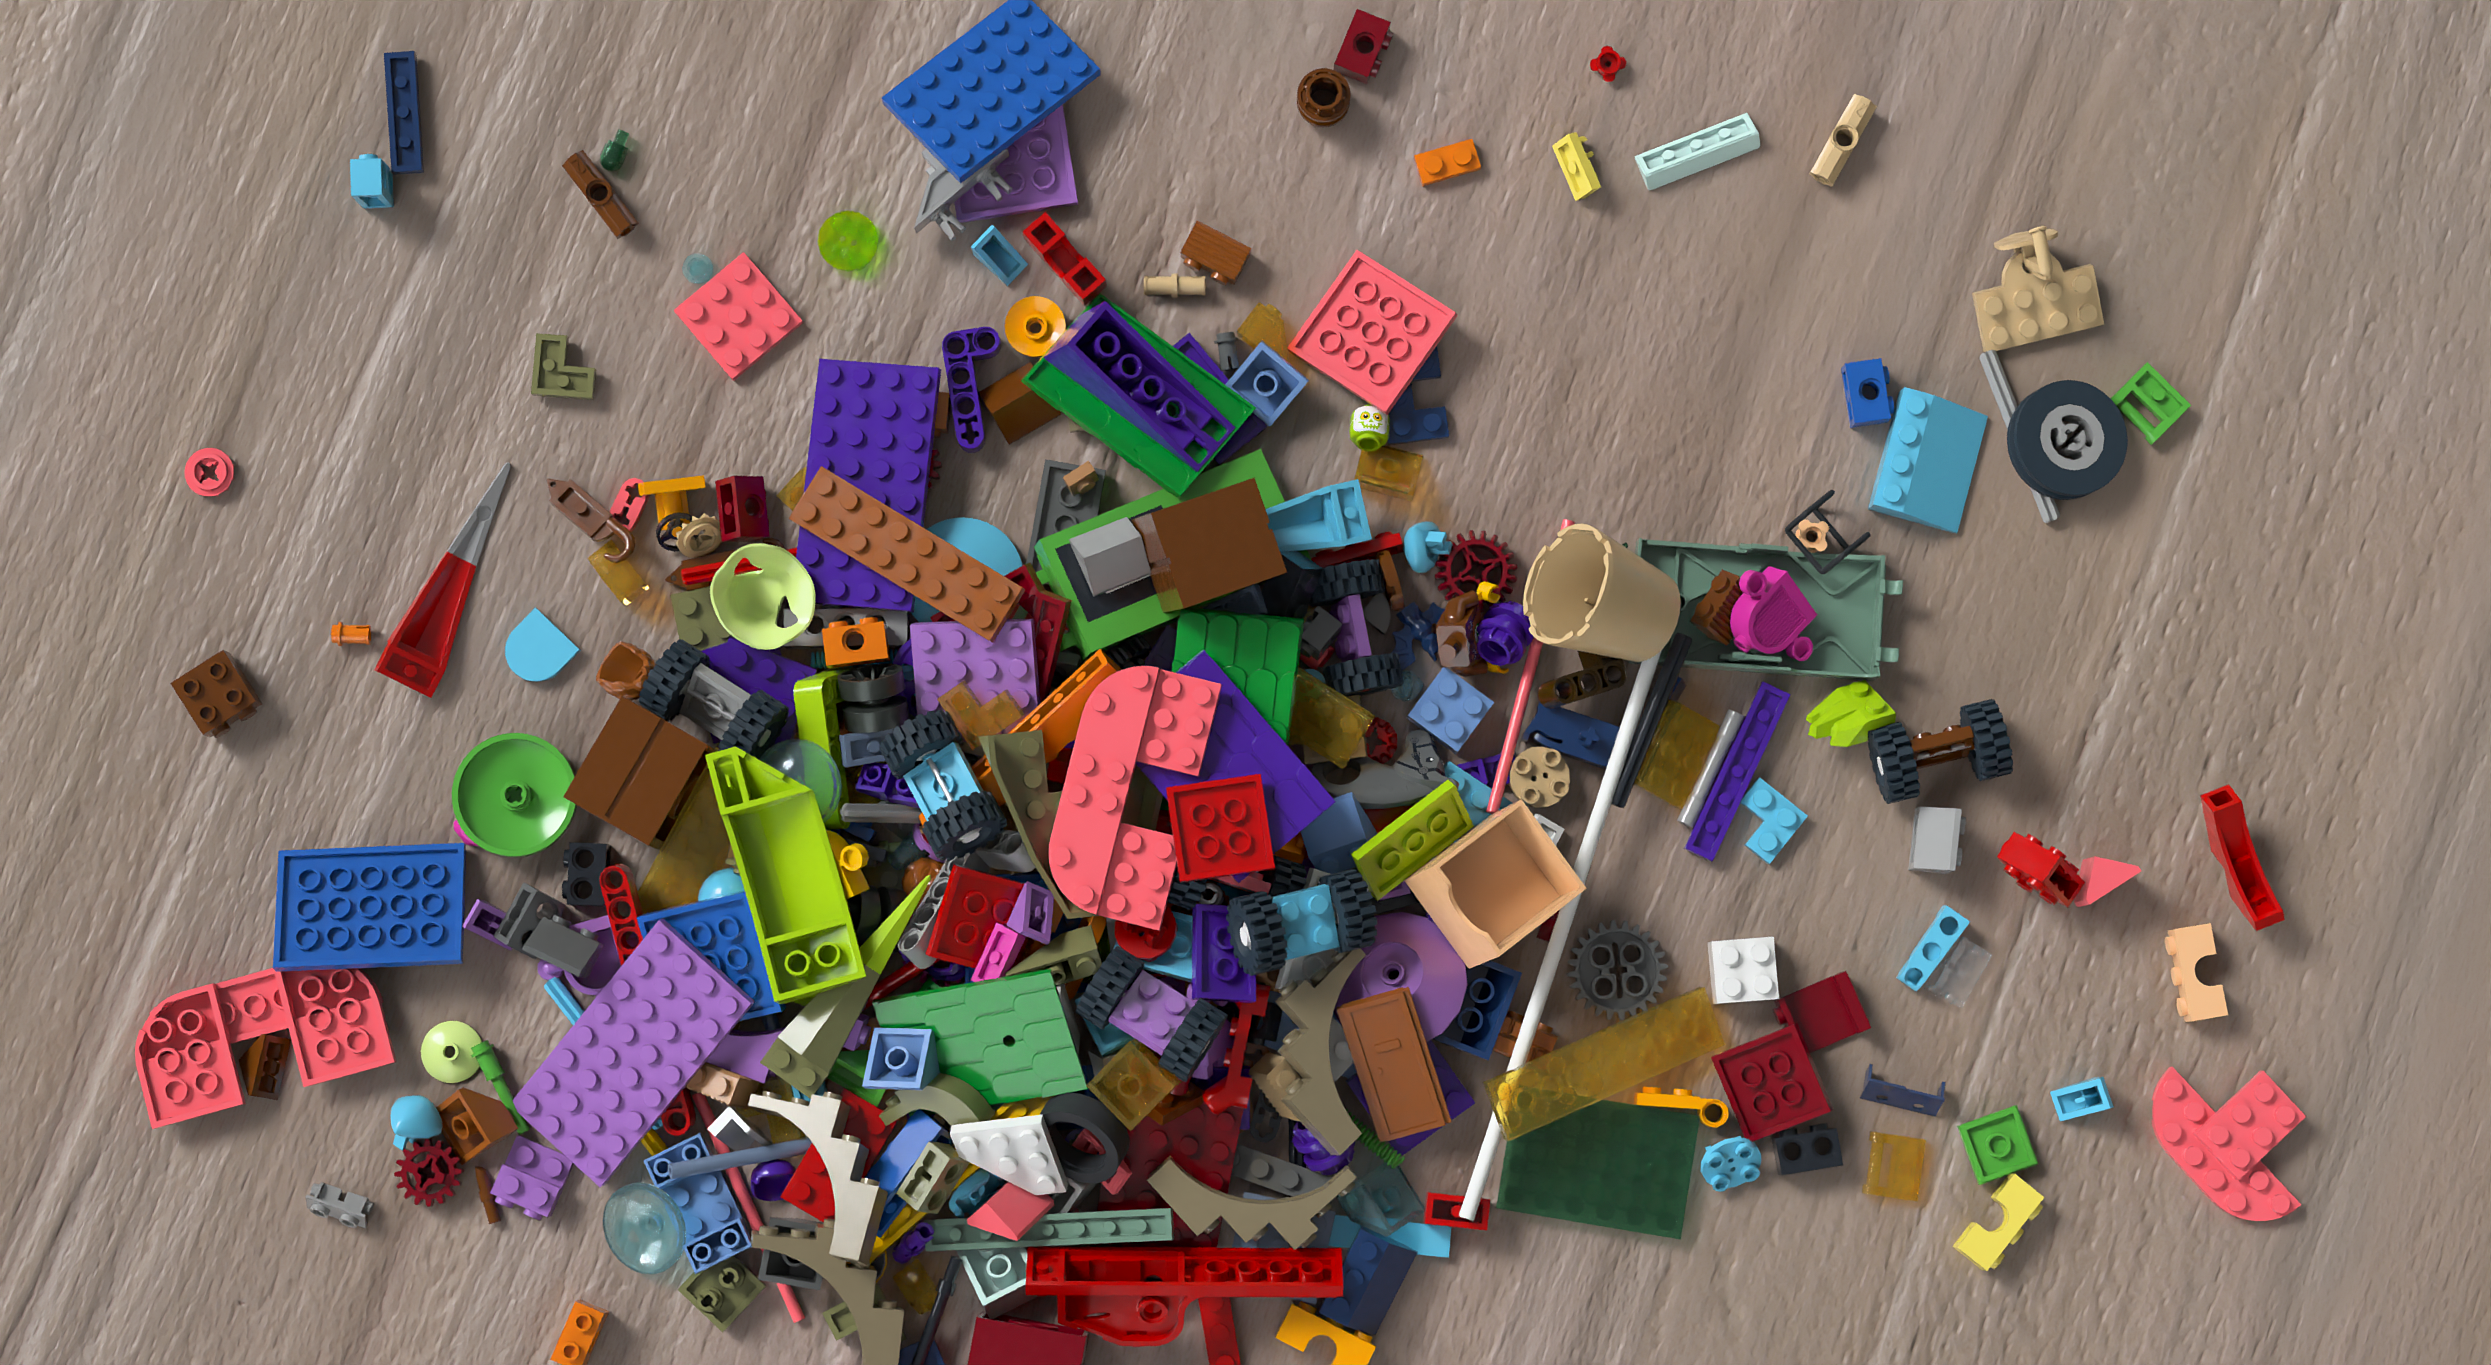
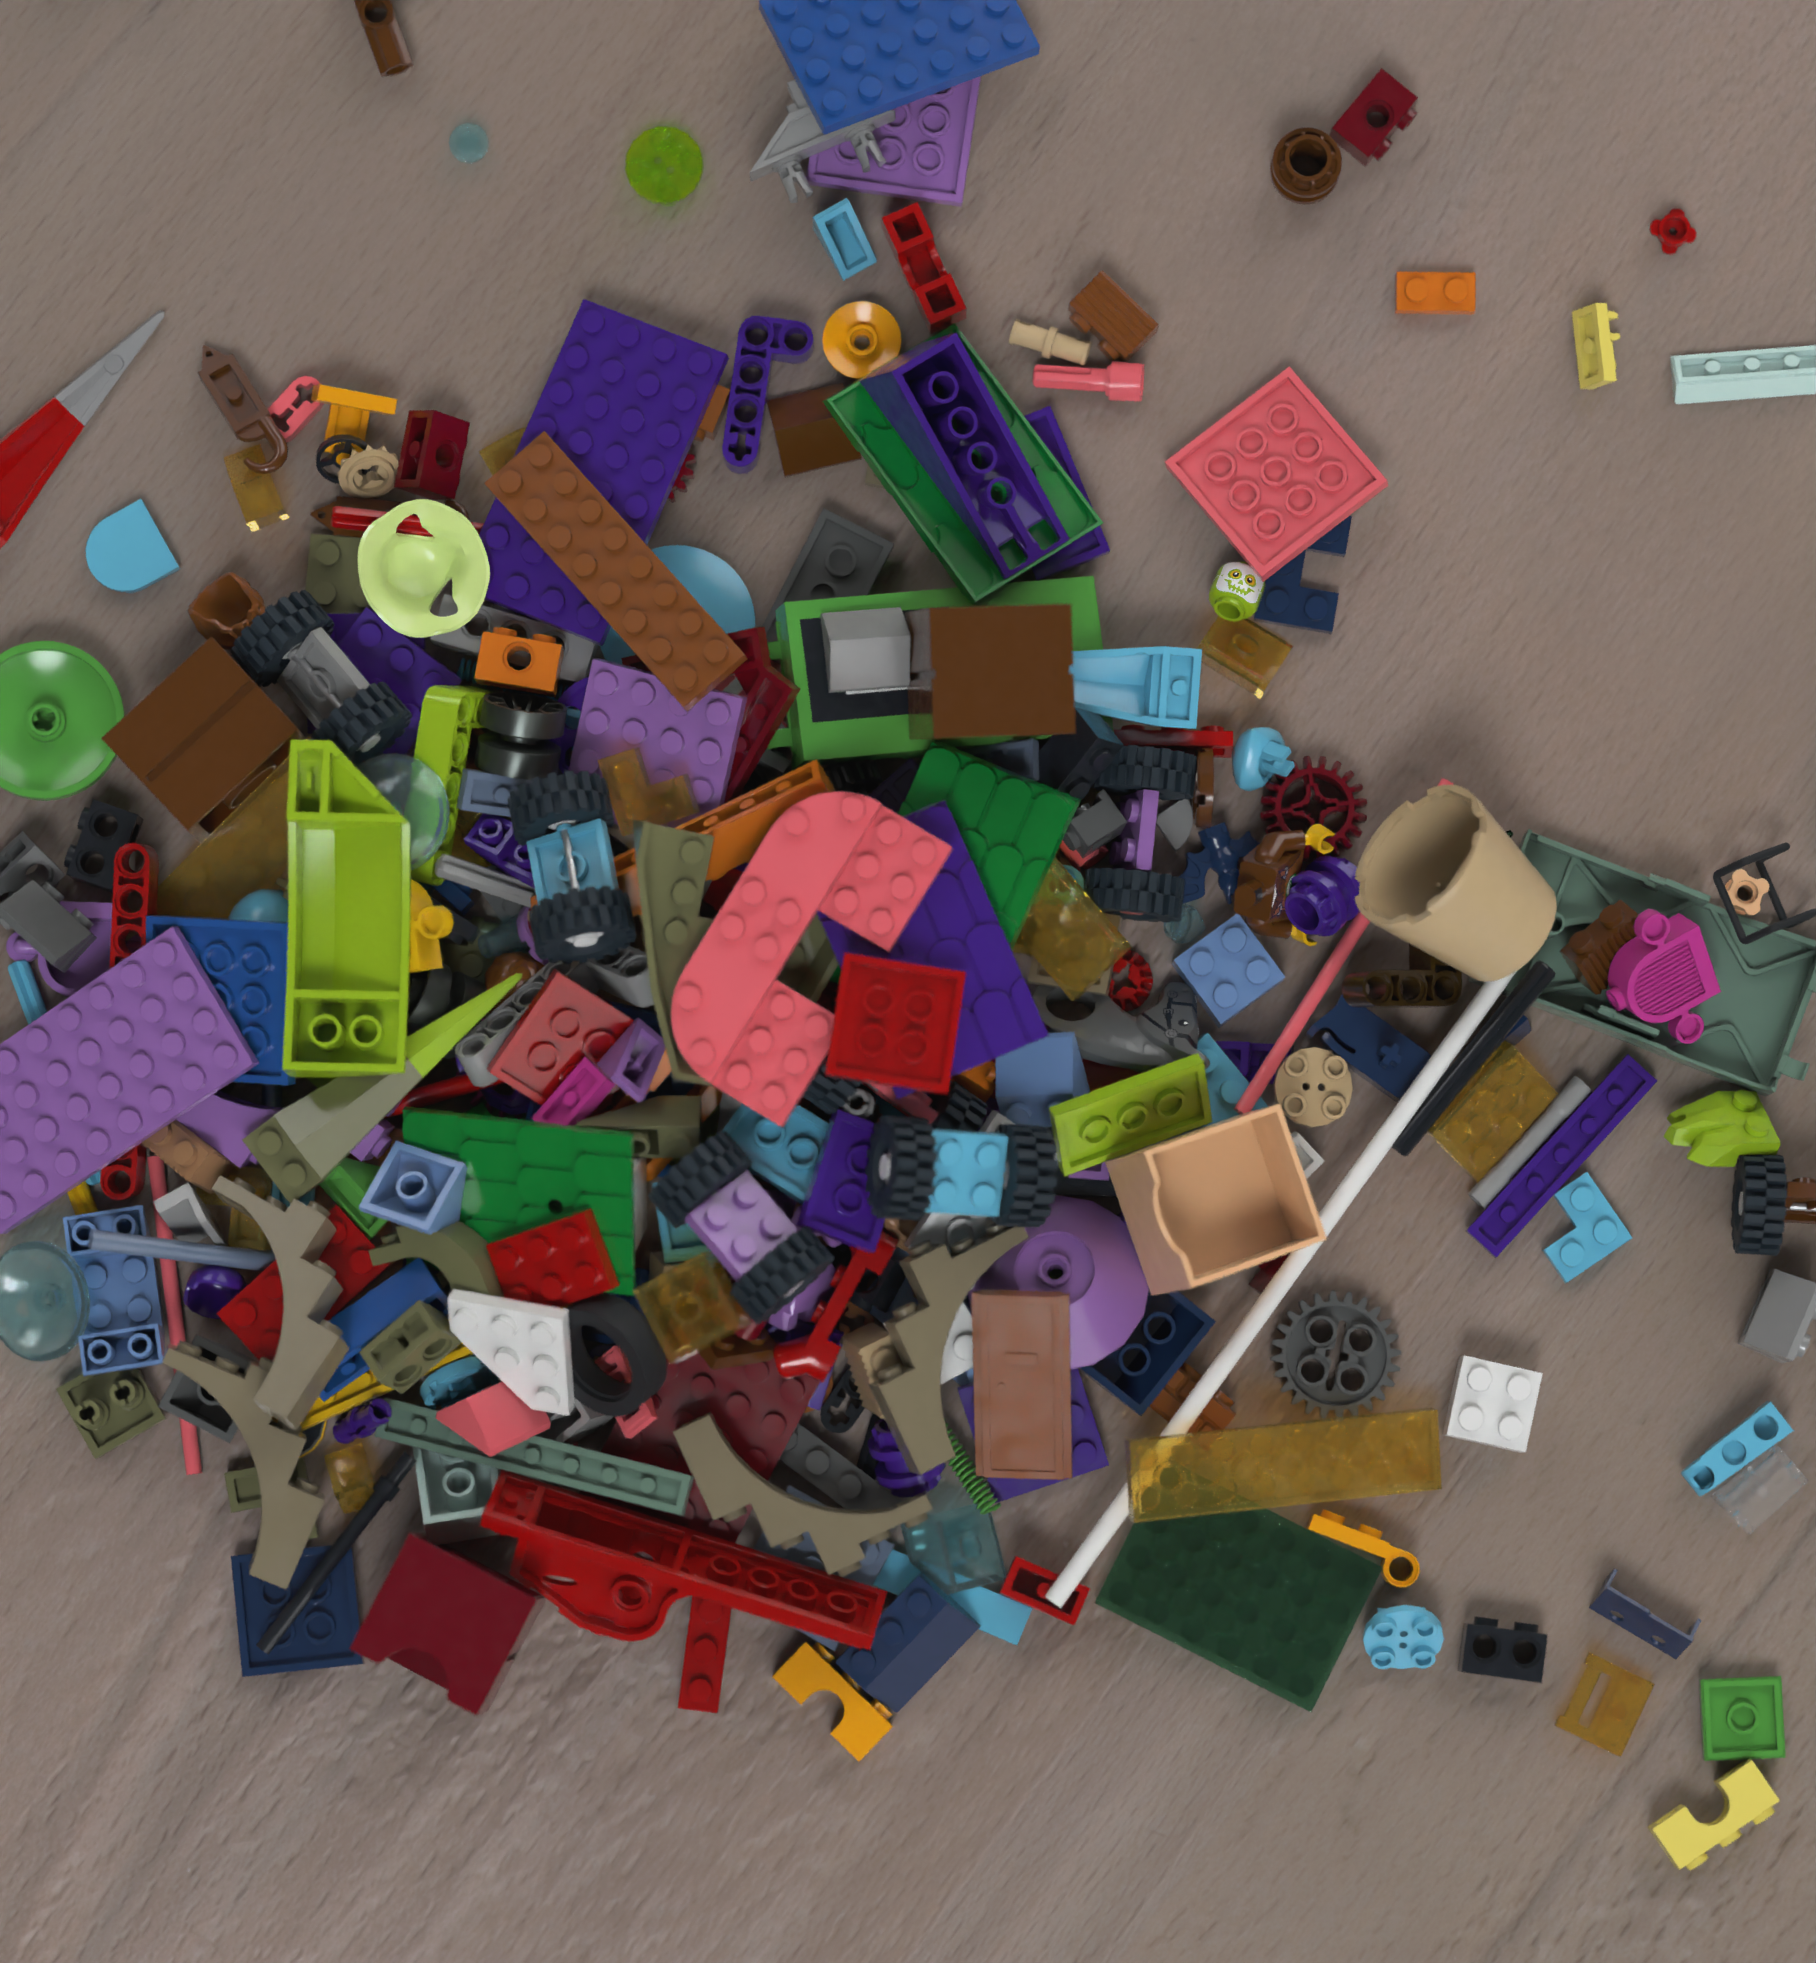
camera: 20 degrees right, 0 degrees up
(551, 374) = (250, 220): olive plate -> none
(738, 316) = (500, 217): coral plate -> none
(1021, 1082) = (554, 1262): none -> red plate
(1081, 479) = (860, 545): medium nougat plate -> none
(1153, 943) = (772, 1140): red plate -> none
(1227, 349) = (1090, 440): dark grey pin -> none
(1234, 298) = (1119, 380): none -> coral piece
(1266, 326) = (1144, 437): clear yellow slope -> none
(1267, 382) = (1127, 497): medium blue slope -> none
(1772, 1083) = (1485, 1554): dark red plate -> none
(1823, 1011) = (1572, 1489): dark red panel -> none

